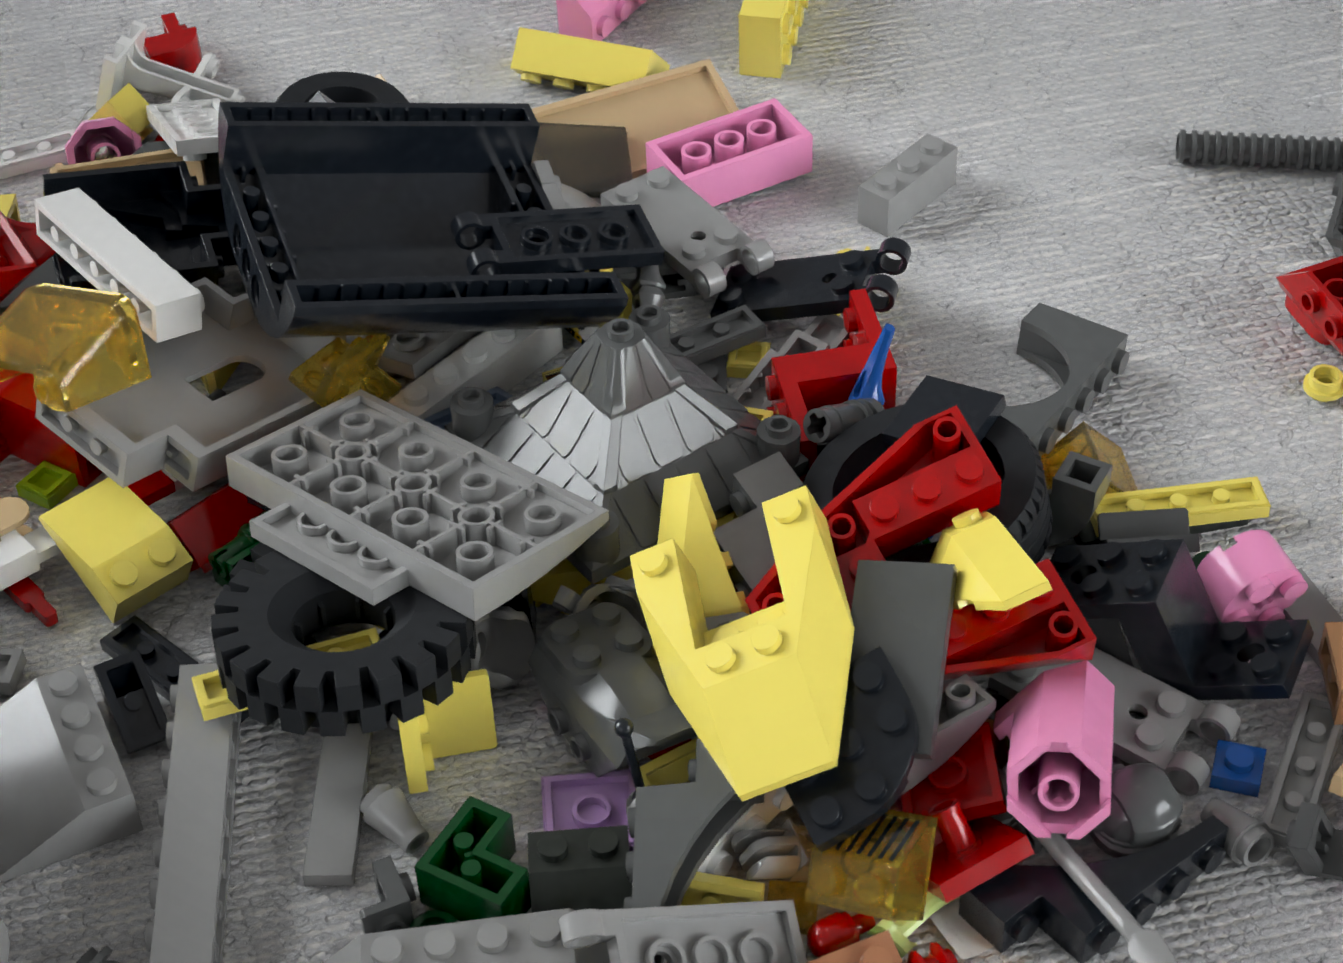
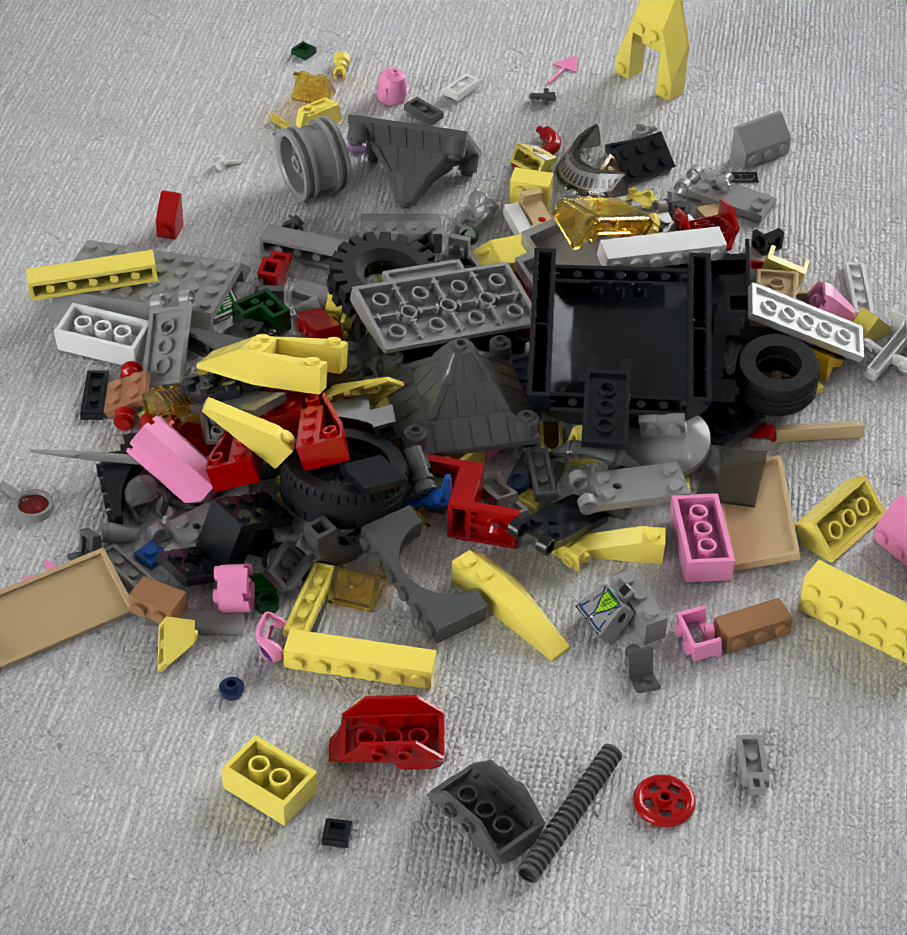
camera: 110 degrees right, 0 degrees up
(37, 655) = (470, 231): none -> tile
(86, 650) = (459, 245): none -> light grey tile
(314, 921) = (275, 268): none -> red brick
(490, 742) = (317, 324): none -> red brick
(736, 362) = (519, 481): none -> dark blue plate
(773, 211) = (630, 544): none -> light yellow wedge
(858, 89) = (753, 625): none -> medium nougat brick
(934, 117) = (697, 634): none -> bright pink window
(949, 195) = (607, 610): none -> light grey torso
(981, 324) = (508, 602): none -> light yellow wedge
(1013, 157) = (641, 668): none -> dark grey bracket
(1090, 43) = (752, 763): none -> light grey hinge
(1207, 98) = (652, 814): none -> red plate
(1242, 414) = (360, 658): none -> light yellow brick
(1310, 509) = (269, 648): none -> bright pink piece

